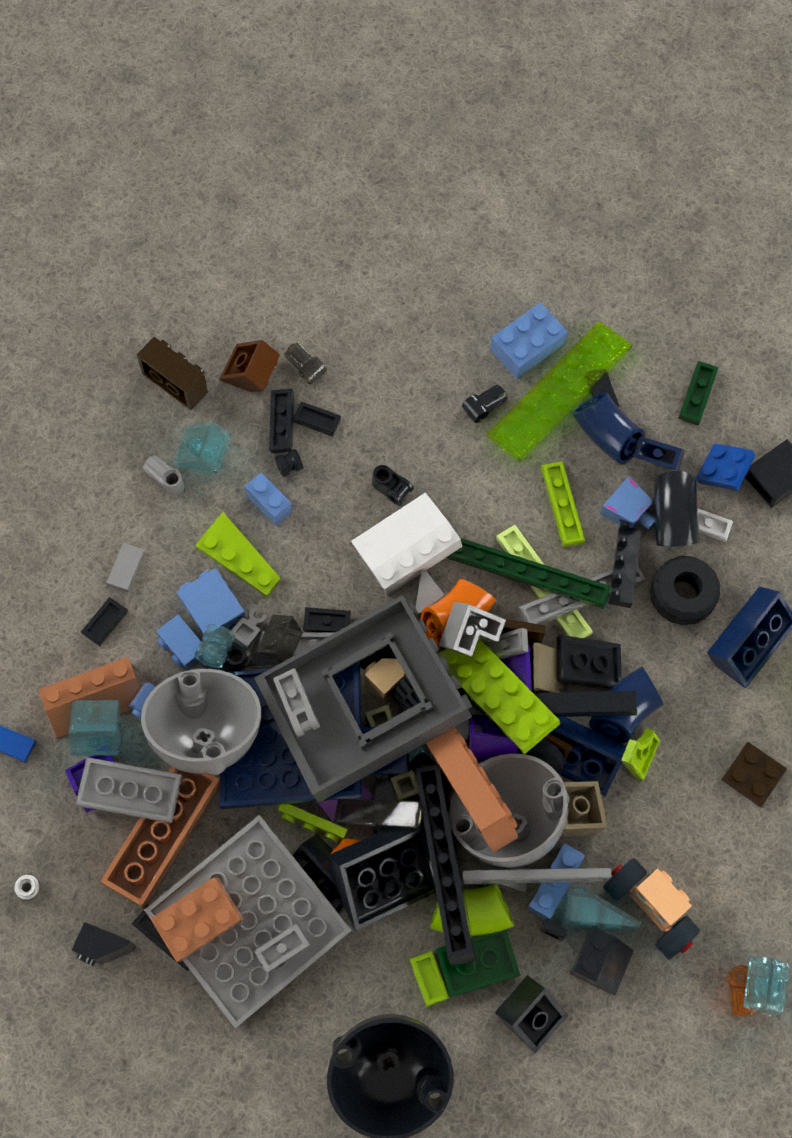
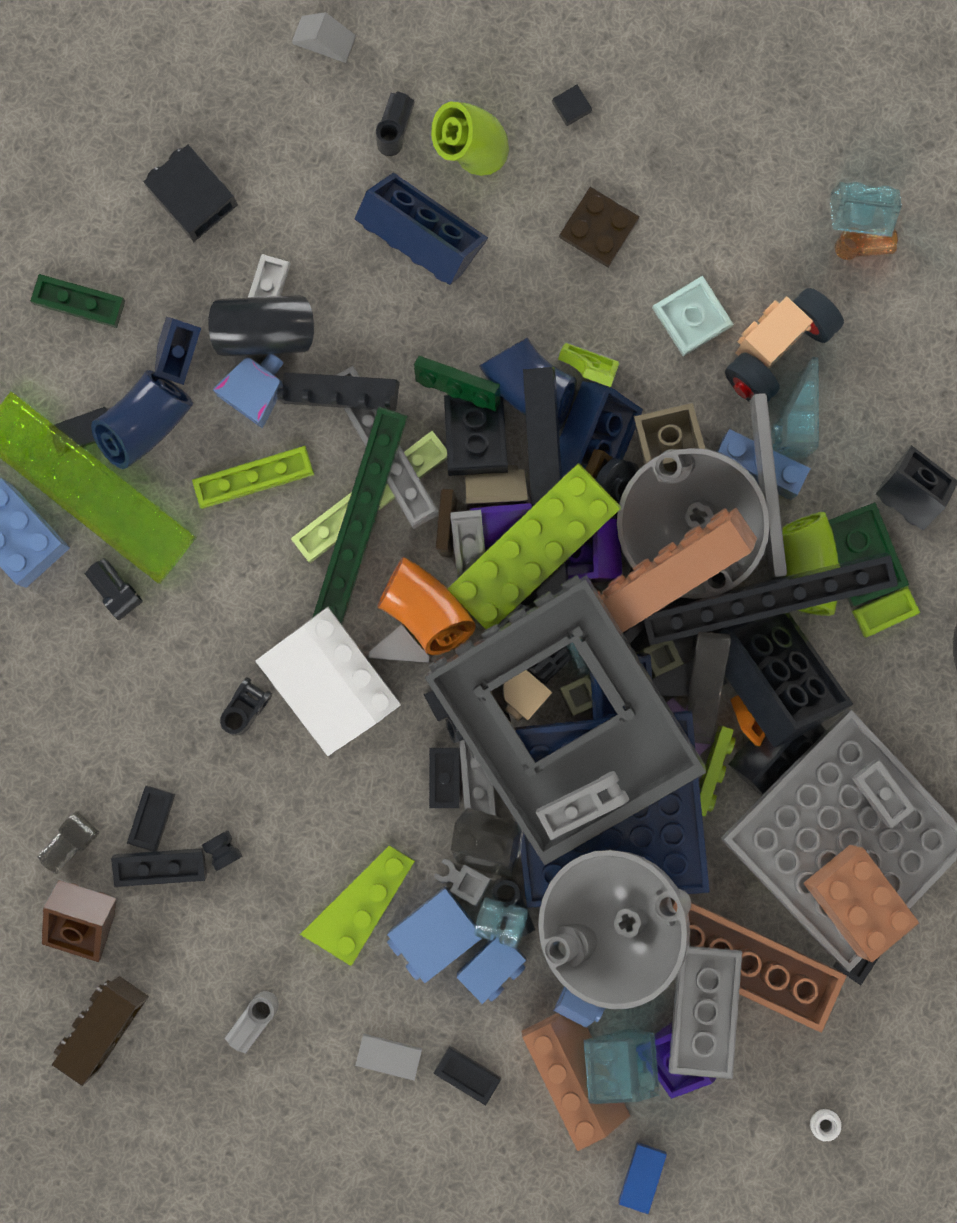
camera: 90 degrees left, 15 degrees up
(100, 945) = (895, 1020): black slope -> none
(203, 448) = (209, 973): clear light blue slope -> none
(268, 499) = (278, 873): medium blue brick -> none
(466, 625) = (455, 591): light grey brick -> none
(553, 930) = (817, 464): black tile -> none
(602, 960) = (848, 407): black slope -> none
(628, 651) = (457, 383): none -> dark green plate
(675, 607) = (357, 287): black tyre -> none
(680, 842) = (692, 316): none -> light aqua tile
(725, 466) = (187, 262): blue plate -> none

